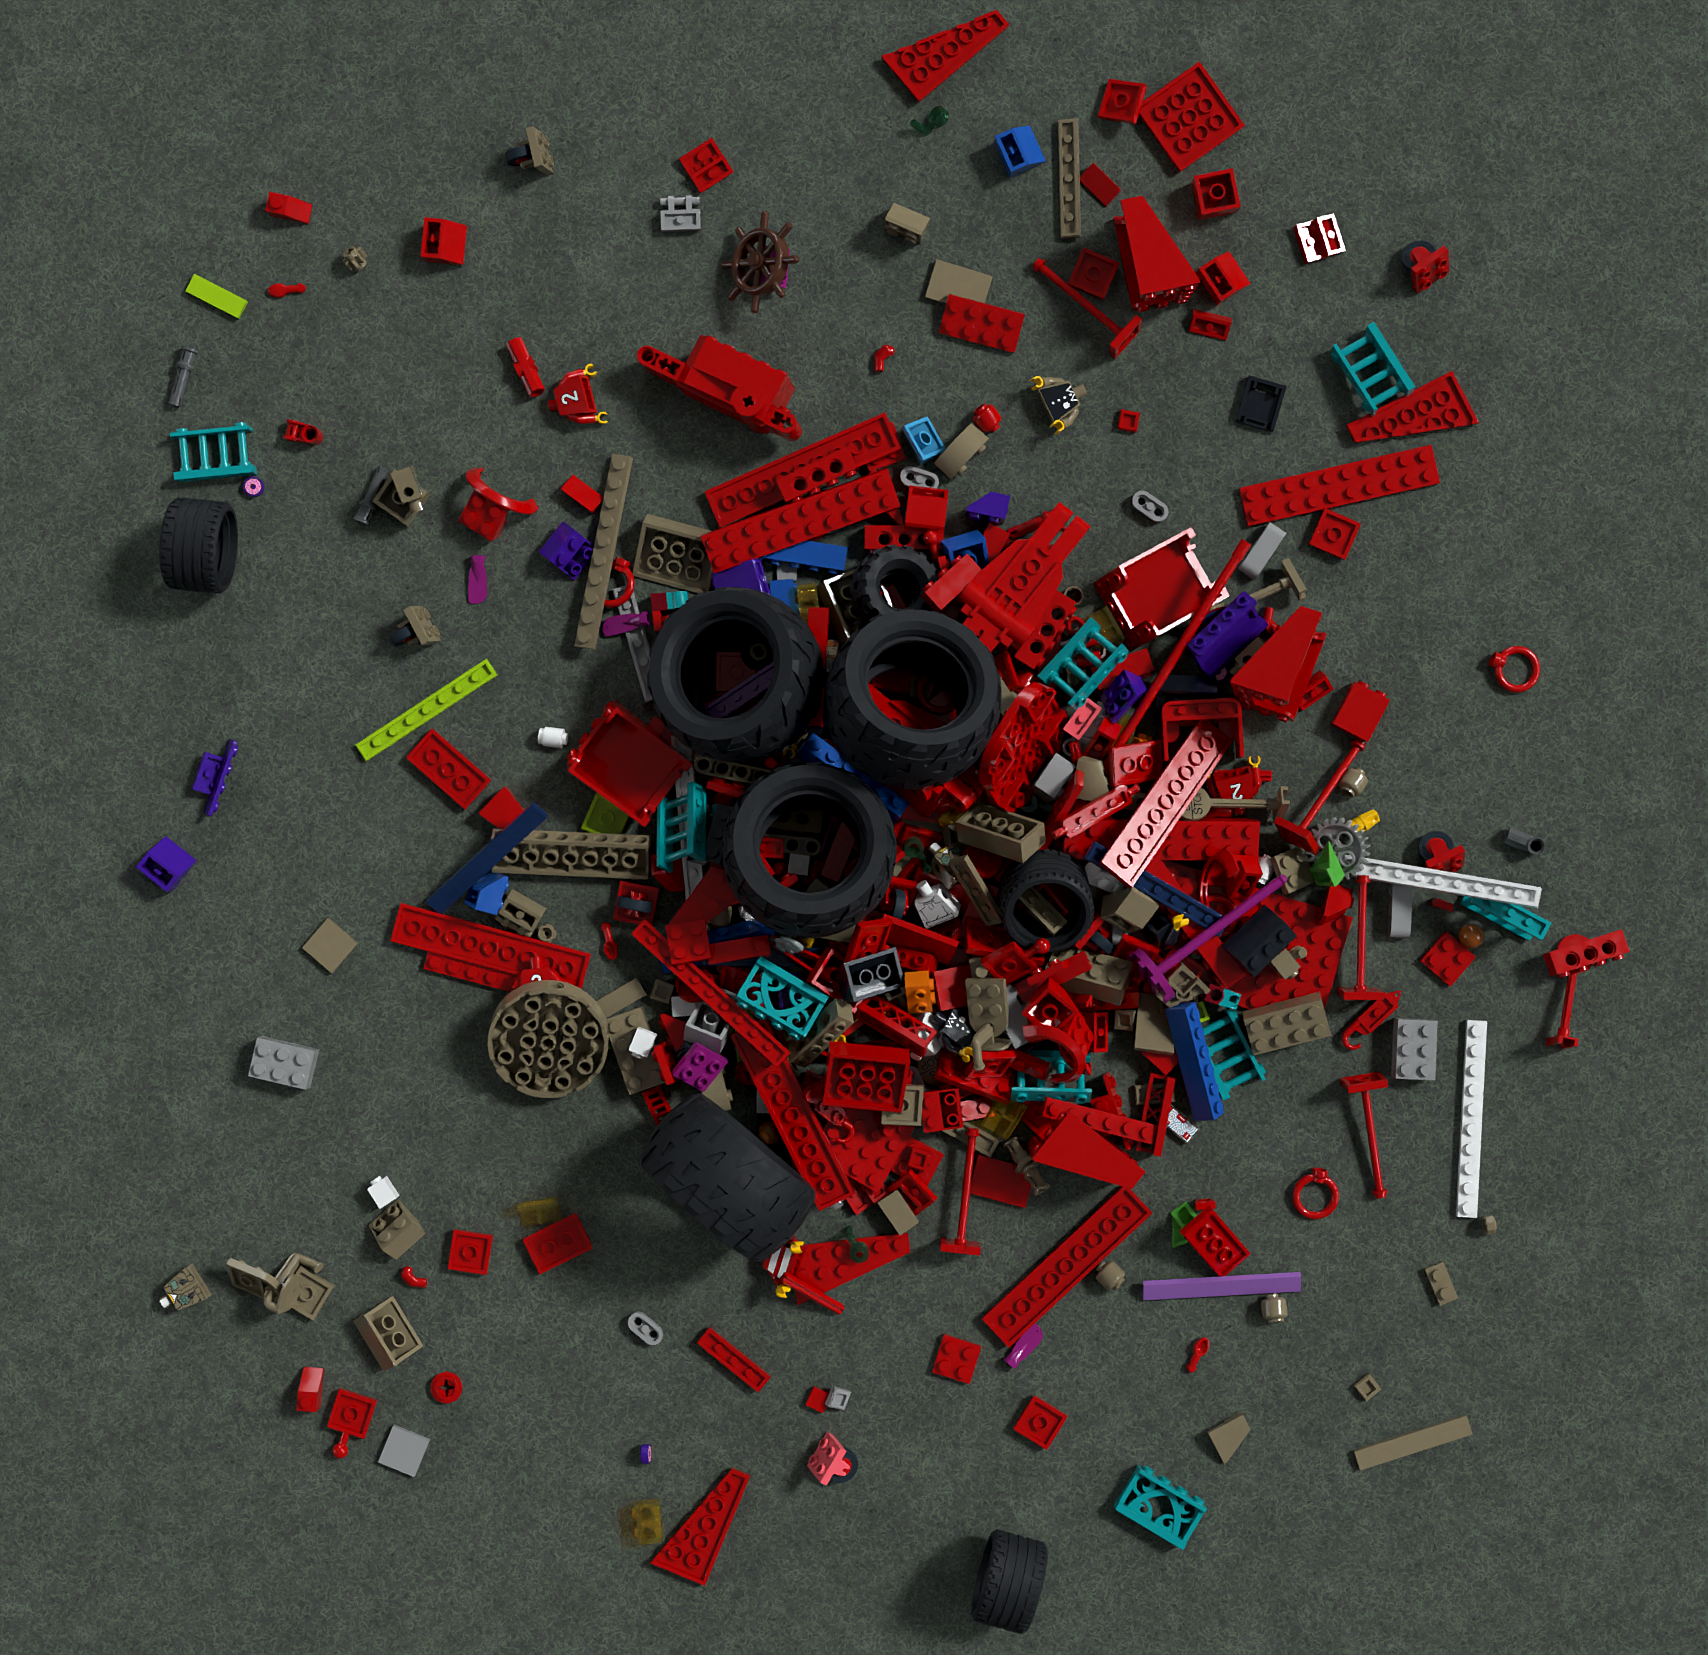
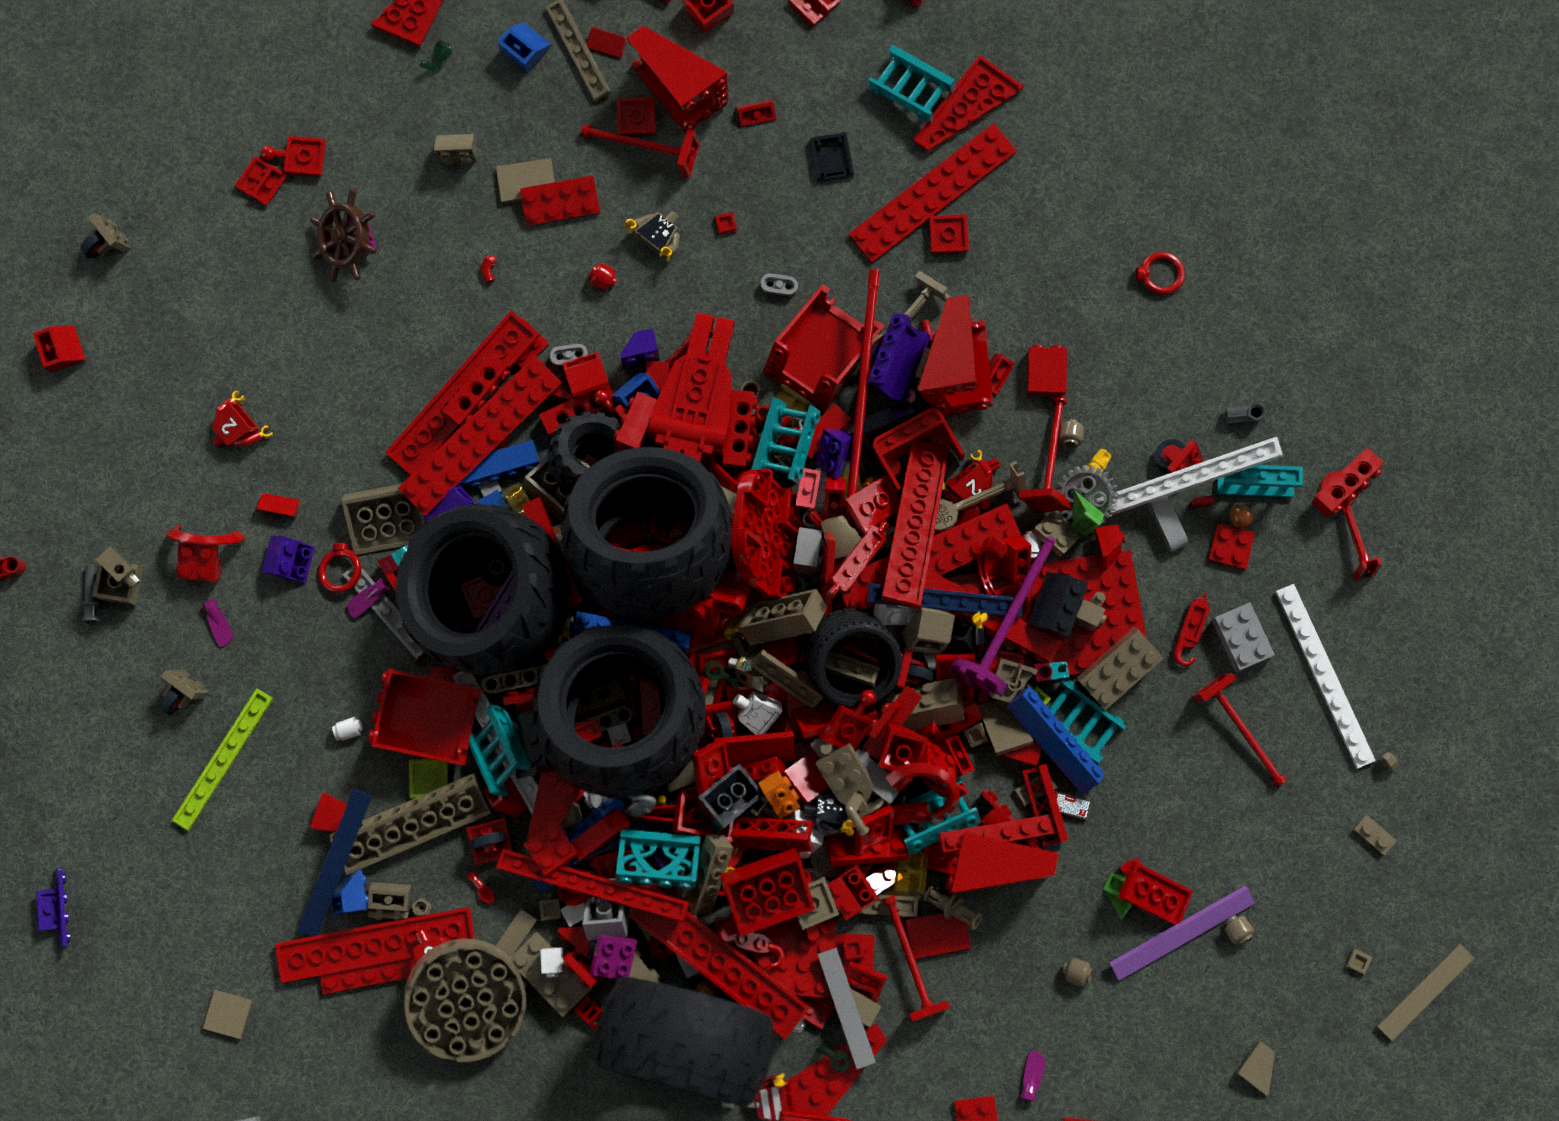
camera: 20 degrees left, 10 degrees down
(166, 864) = (44, 1010): dark purple slope -> none
(449, 768) = (266, 801): red plate -> none
(525, 367) = (179, 420): red piece -> none
(603, 551) = (319, 546): dark tan plate -> none
(680, 220) = (258, 235): light grey plate -> none
(730, 384) = (364, 348): red piece -> none
(756, 159) = (301, 157): none -> red plate
(887, 1209) = (846, 1008): none -> light grey tile
(923, 440) = (555, 321): dark azure slope -> none
(961, 450) = (593, 313): dark tan brick -> none
(1066, 1265) = (1034, 982): red plate -> none
(1200, 1349) = (1192, 1001): red piece -> none
(1222, 277) = (747, 69): red slope -> none
(1262, 551) = (894, 276): light grey beam -> none
(1320, 1176) = (1218, 791): red piece -> none
(1360, 991) = (1168, 607): red tile -> none

